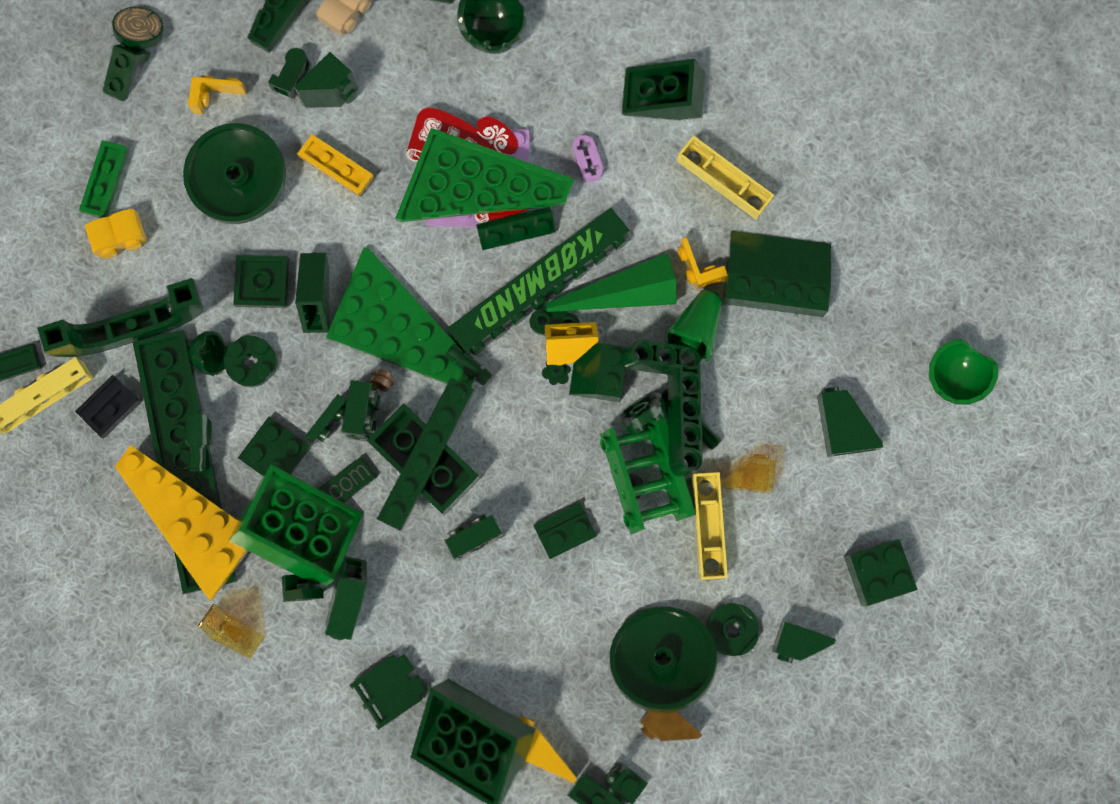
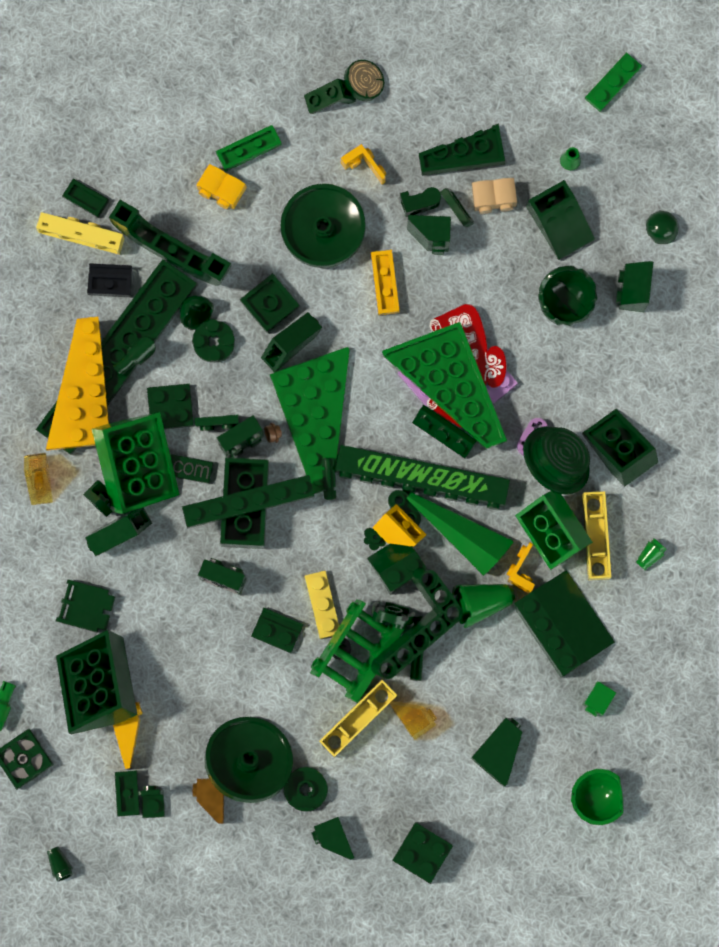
camera: 50 degrees right, 0 degrees up
(326, 46) = (457, 207): none -> dark green tile
(576, 469) = (322, 604): none -> light yellow plate
(629, 149) = (557, 459): none -> dark green piece
(688, 206) = (553, 529): none -> green brick
(780, 146) = (651, 553): none -> green cone
(871, 299) = (598, 699): none -> green brick

